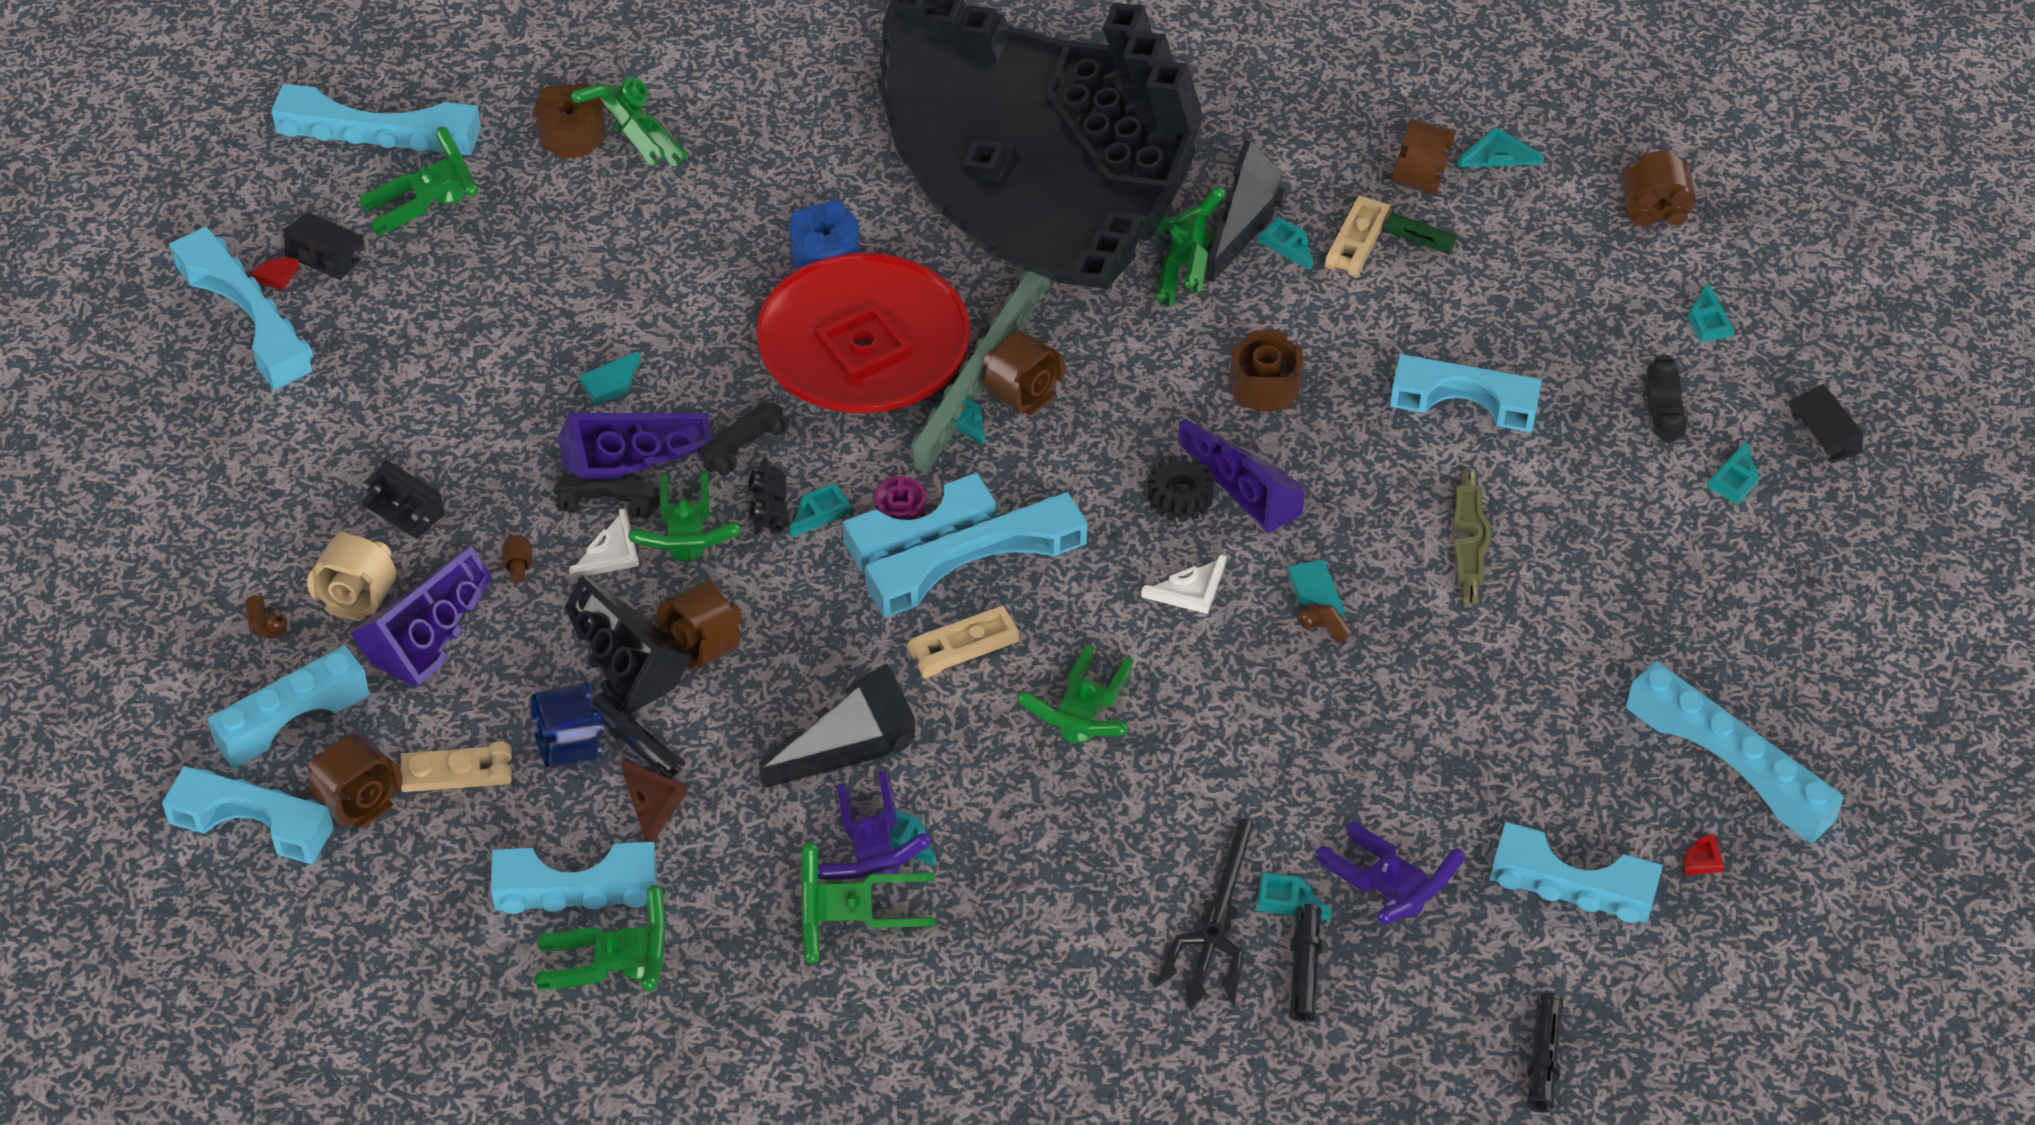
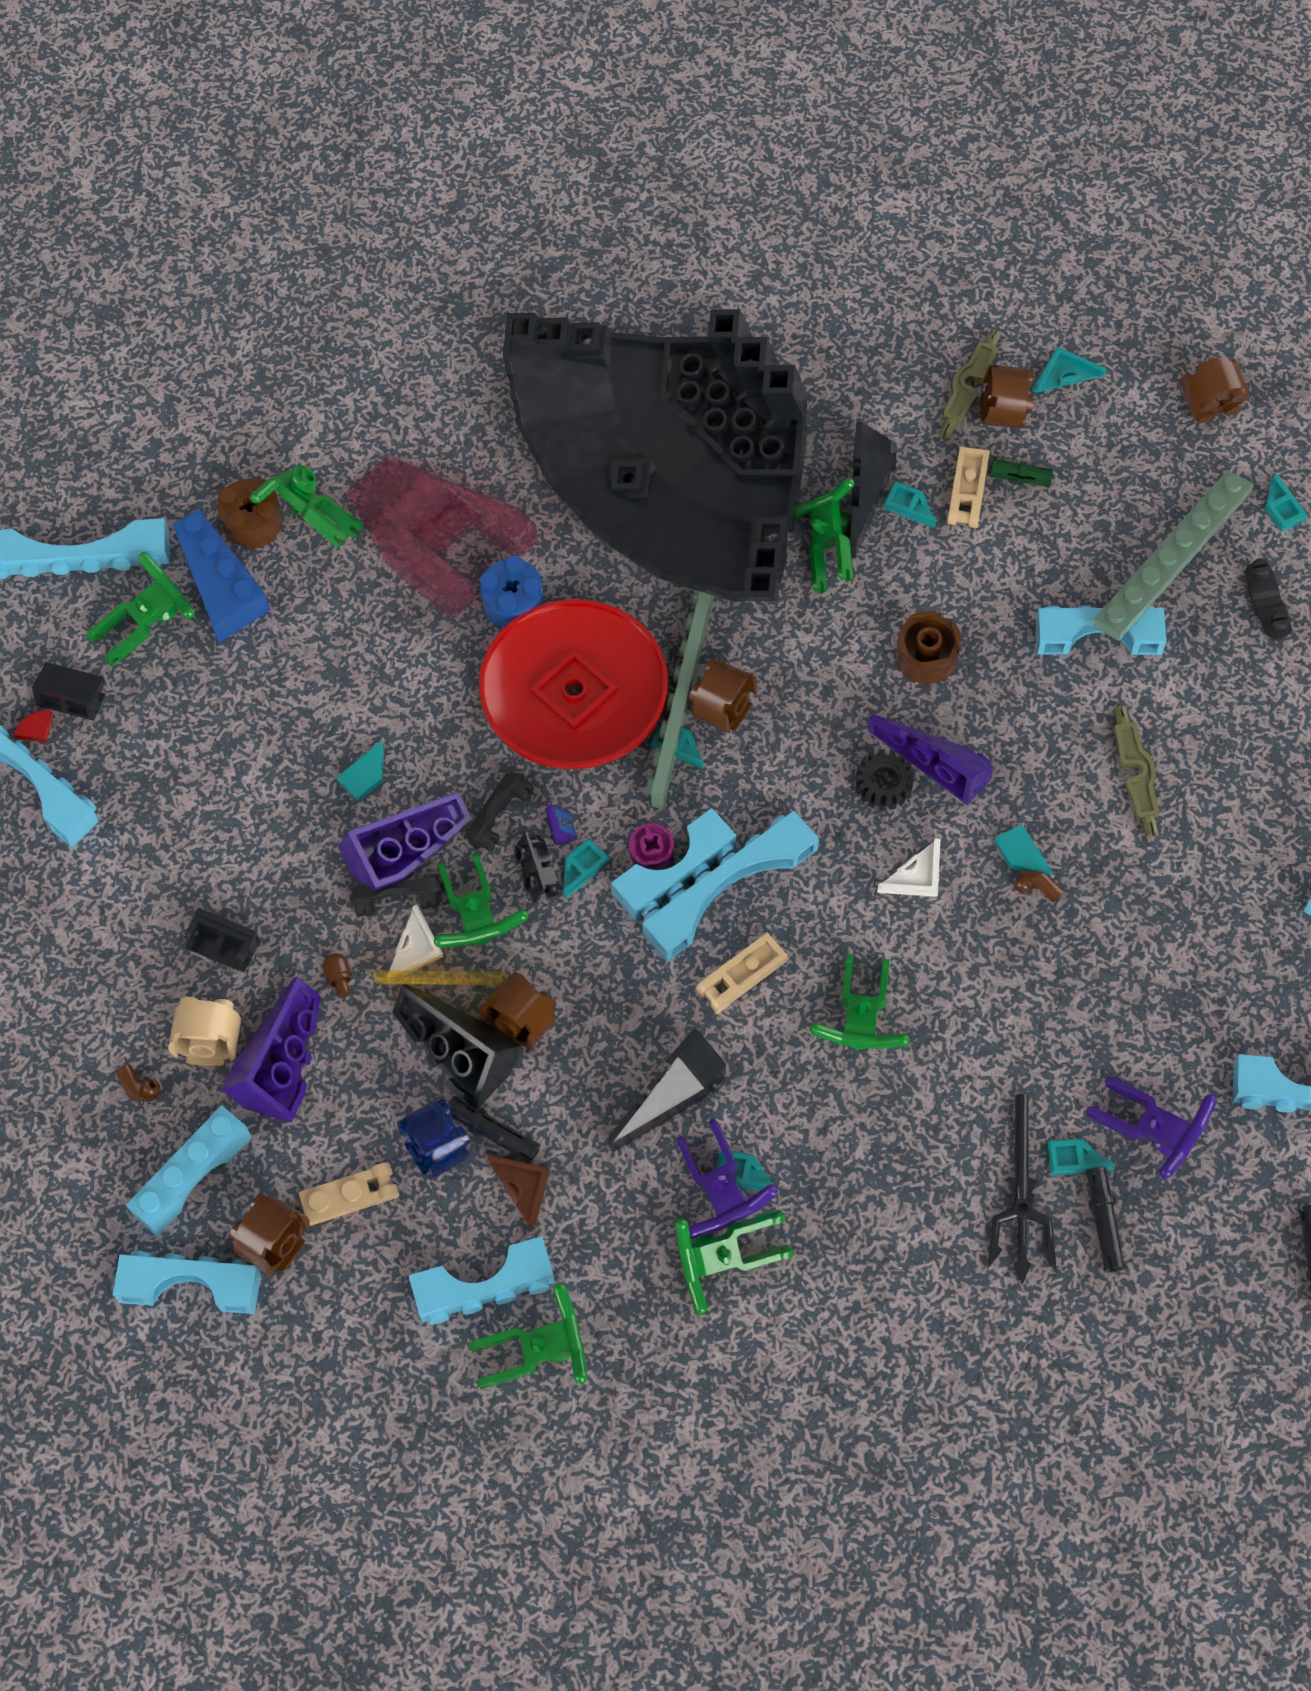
camera: 10 degrees left, 15 degrees up
(518, 173) = (222, 581): none -> blue wedge
(619, 574) = (446, 977): none -> clear yellow tile
(751, 154) = (421, 515): none -> clear pink wedge
(807, 464) = (560, 825): none -> dark purple slope
(1377, 153) = (963, 395): none -> olive piece
(1566, 334) = (1172, 555): none -> sand green plate

